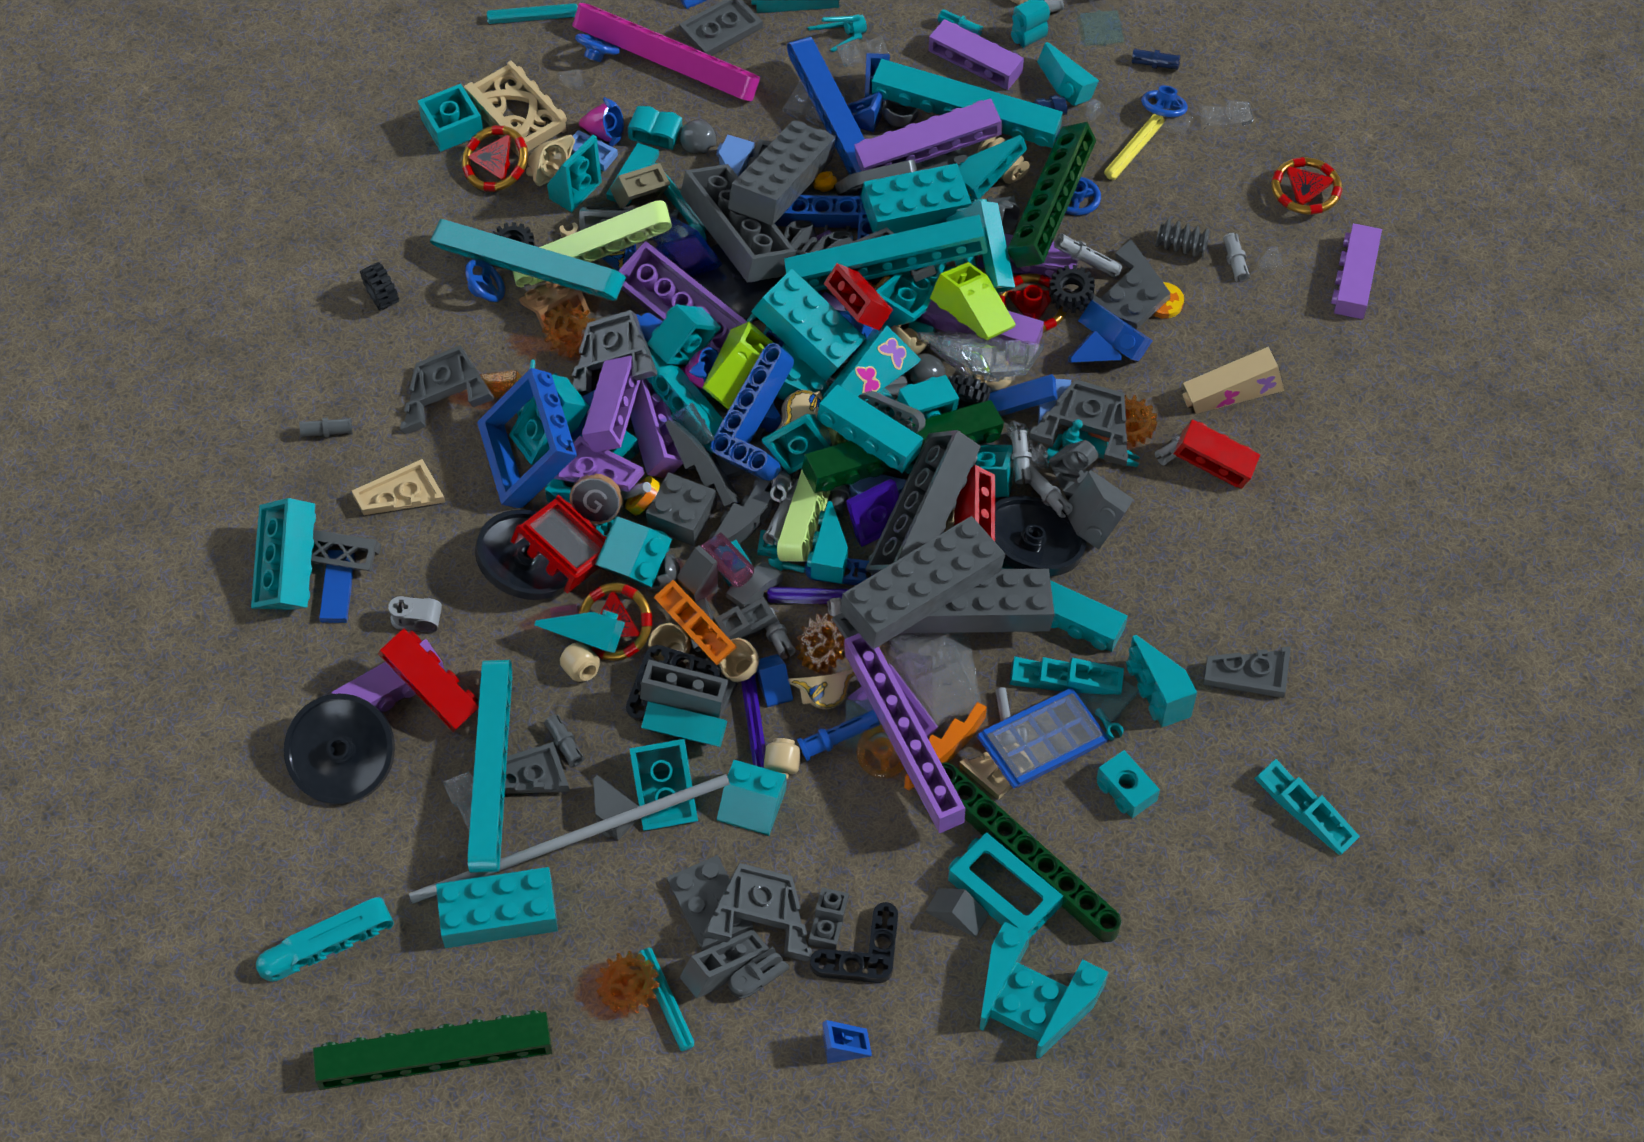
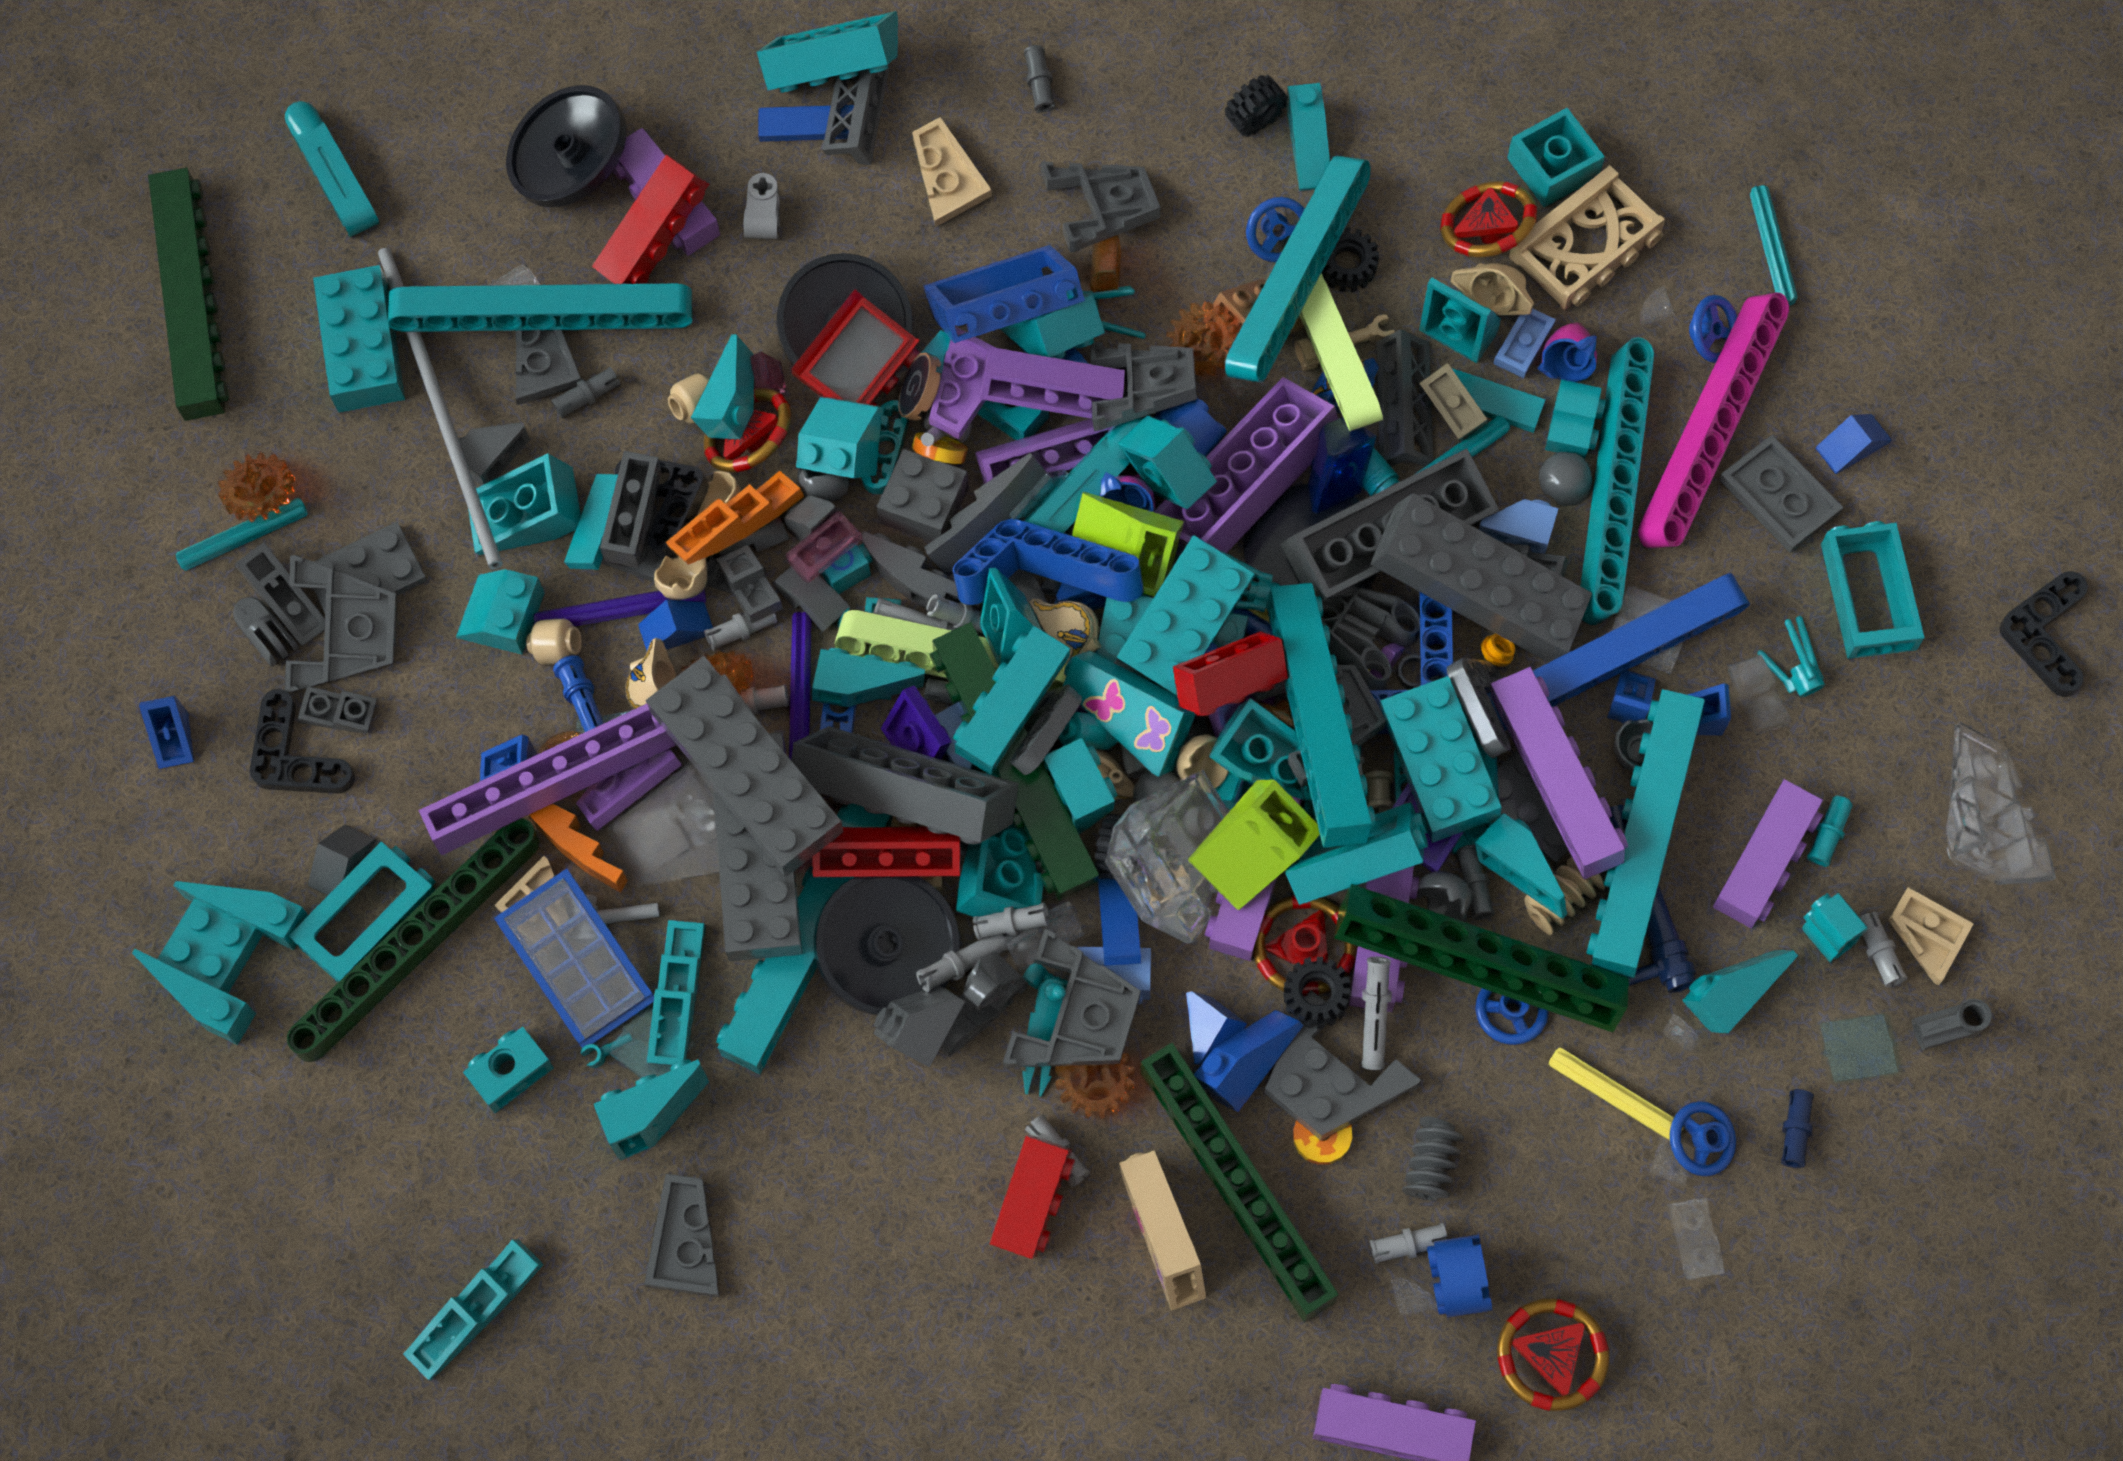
camera: 90 degrees right, 10 degrees up
(408, 260) = (1308, 133): none -> teal slope
(703, 105) = (1617, 459): none -> teal beam
(883, 788) = (505, 756): none -> blue slope
(1201, 340) = (1238, 1183): none -> dark green brick
(1261, 225) = (1462, 1276): none -> blue brick

